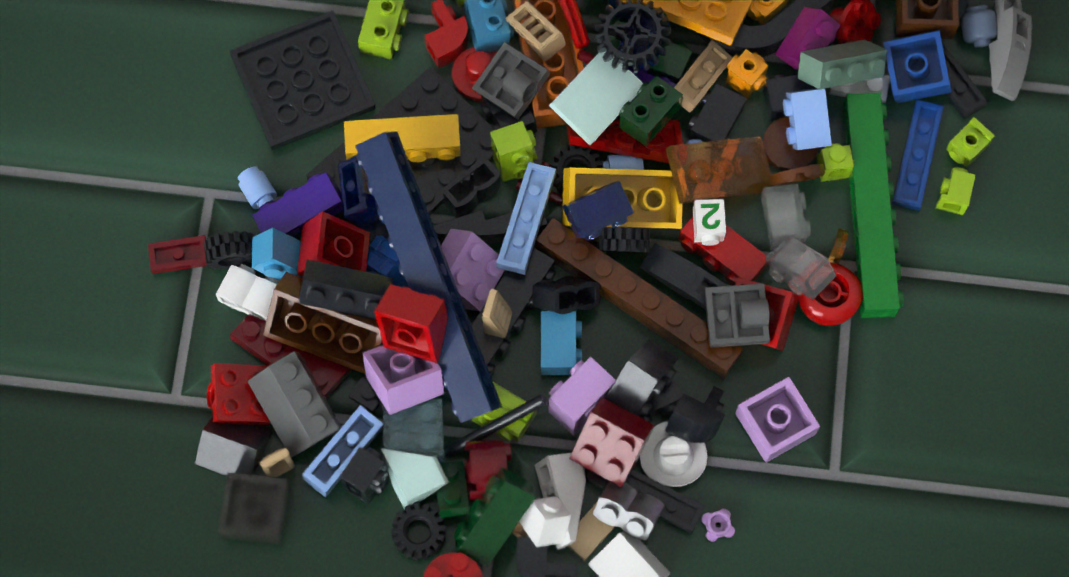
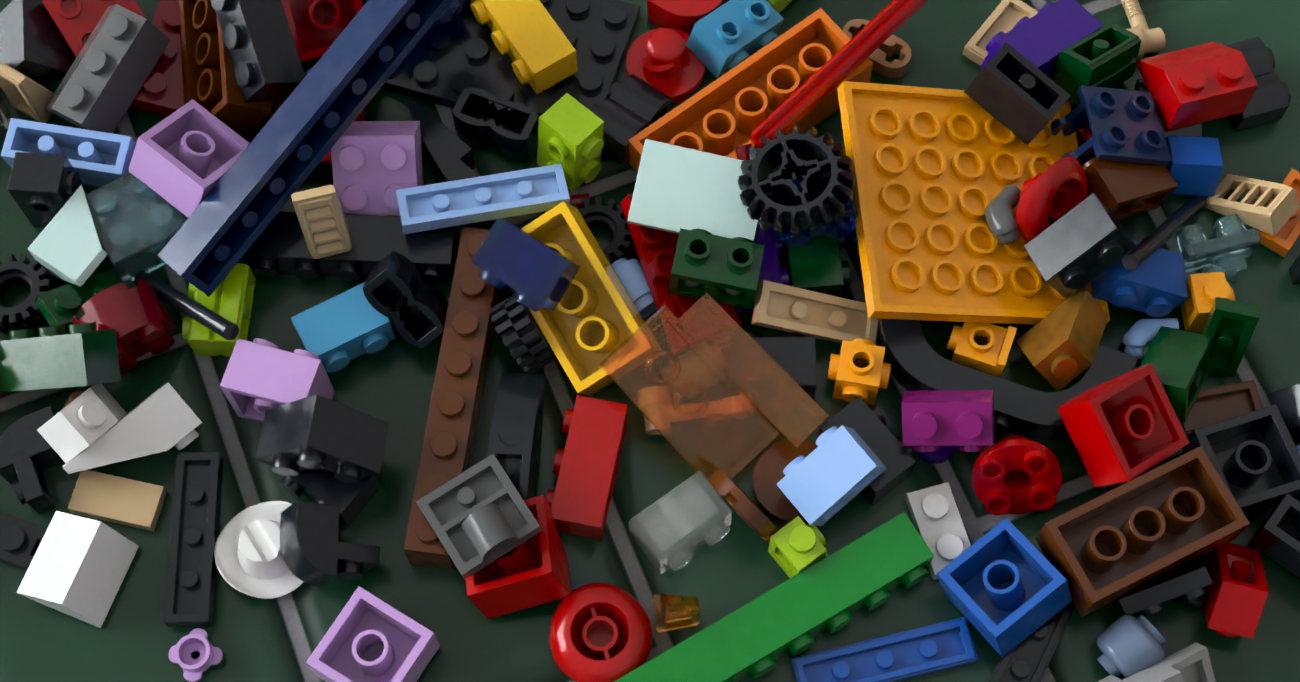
camera: 65 degrees right, 5 degrees down
(412, 322) = (243, 117): red slope -> none
(511, 80) = (657, 87): dark grey plate -> none
(546, 44) = (738, 104): tan slope -> none
(611, 441) = (218, 446): brick -> none
(628, 509) = (147, 521): flat silver brick -> none
(709, 221) = (601, 418): white brick -> none
(723, 125) = (754, 371): none -> clear orange tile
(800, 267) = (602, 571): clear brick -> none
(842, 64) = (936, 477): sand green brick -> none

